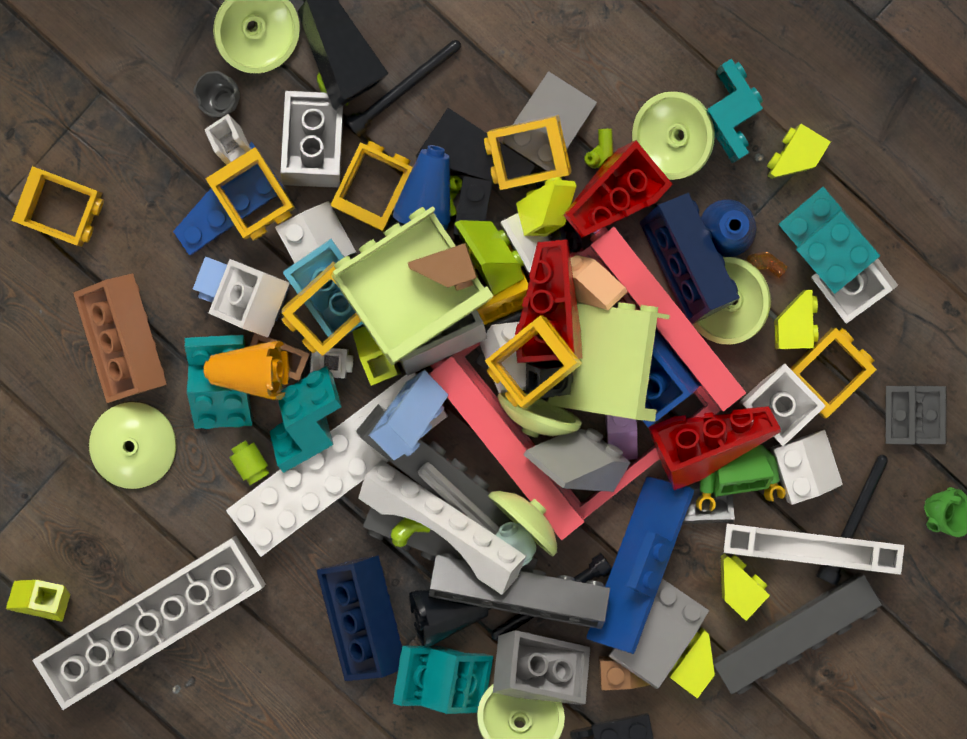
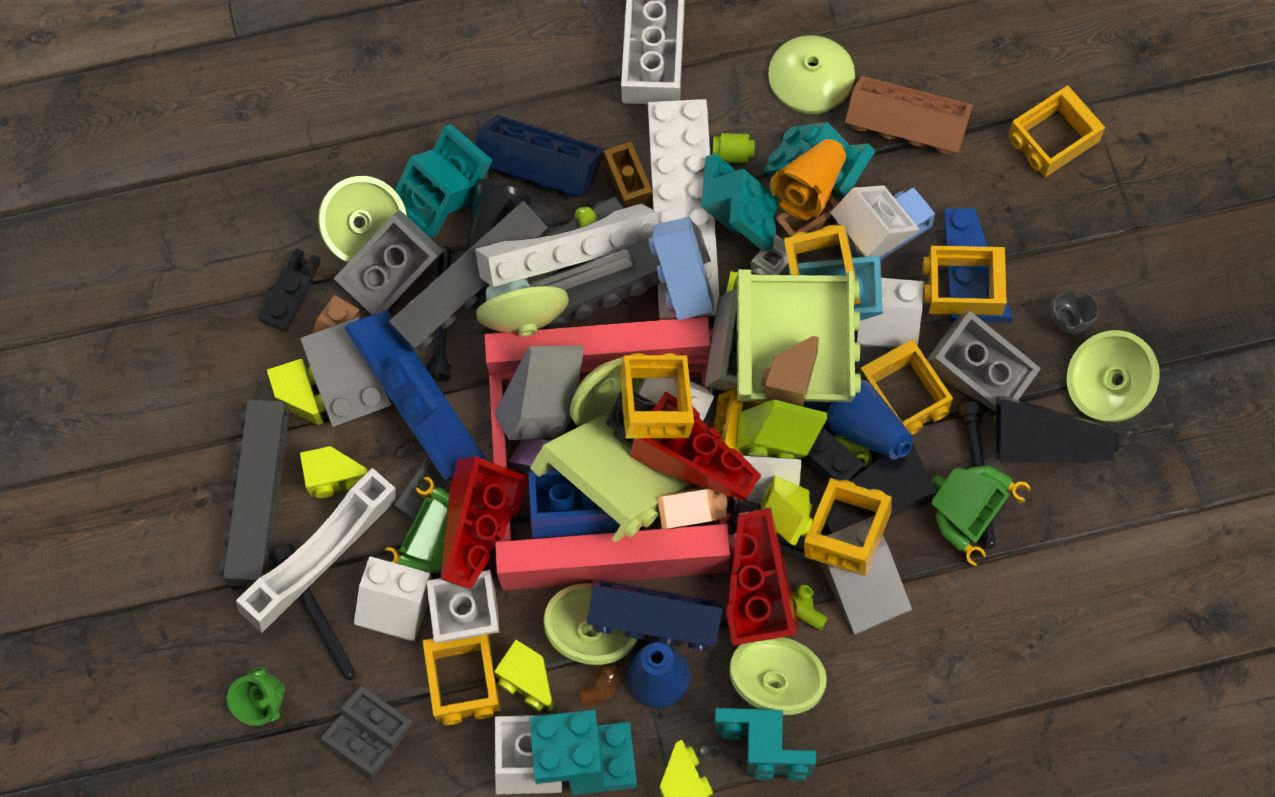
camera: 125 degrees right, 20 degrees down
(227, 139) = (1027, 295): white window -> none
(337, 527) = (628, 176): none -> pearl gold brick
(439, 76) = (970, 502): none -> bright green torso

